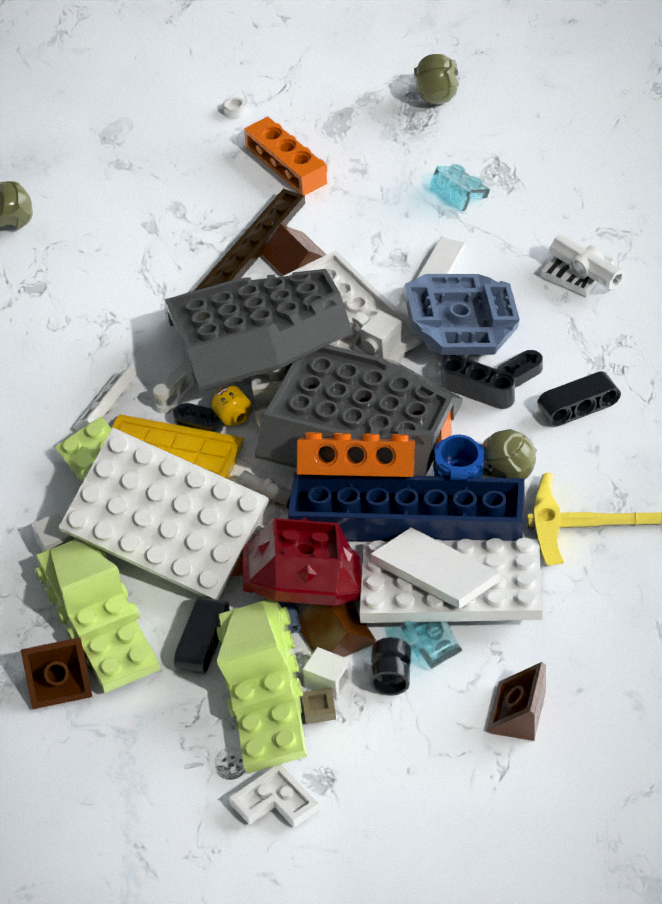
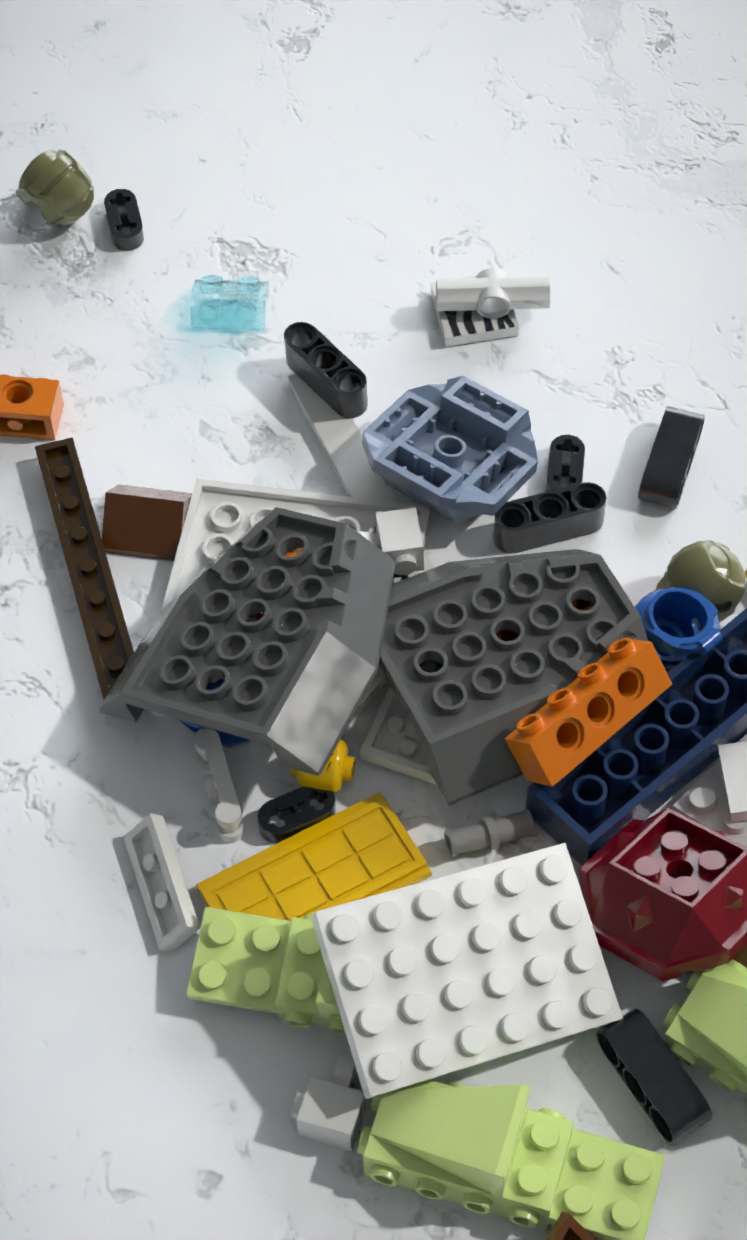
camera: 50 degrees left, 10 degrees up
(455, 241) = (326, 369): none -> black beam
(459, 118) = (130, 219): none -> black beam

